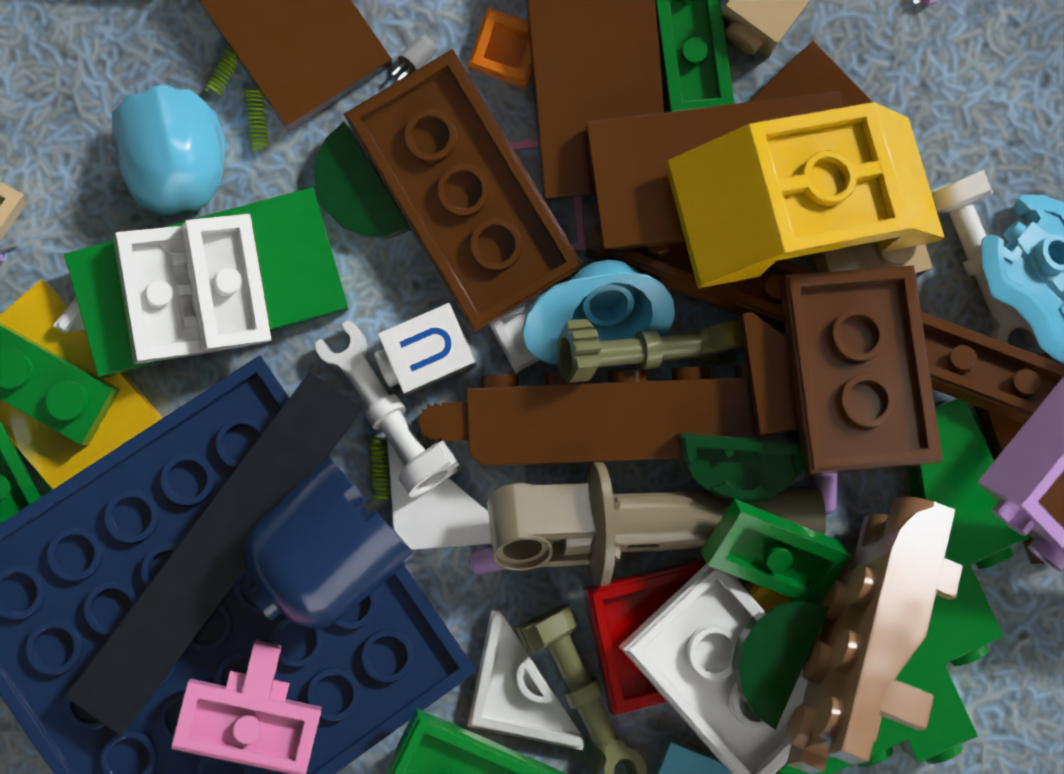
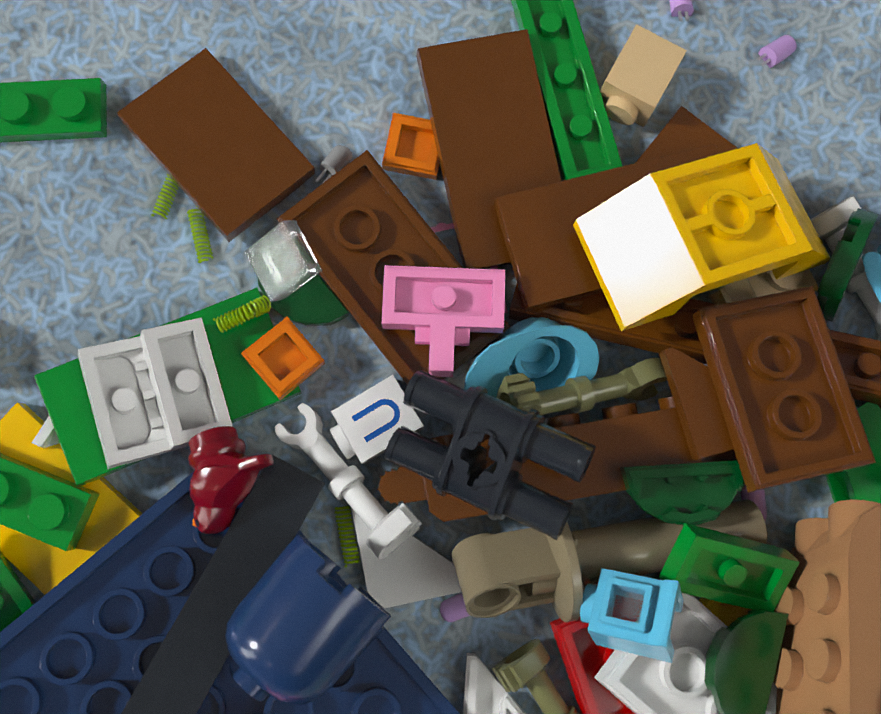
camera: 15 degrees left, 5 degrees down
(168, 149) = (123, 270): medium azure hair -> none
(253, 387) = (221, 476): none -> dark red animal
(306, 211) = (249, 311): none -> lime leg
(333, 269) = (283, 358): none -> orange tile
(345, 162) = (283, 260): none -> clear tile
(511, 237) = (443, 307): none -> bright pink hinge
(563, 387) = (513, 440): none -> black pin
(664, 583) = (632, 613): none -> medium azure window
(959, 244) = (844, 261): none -> dark green tile

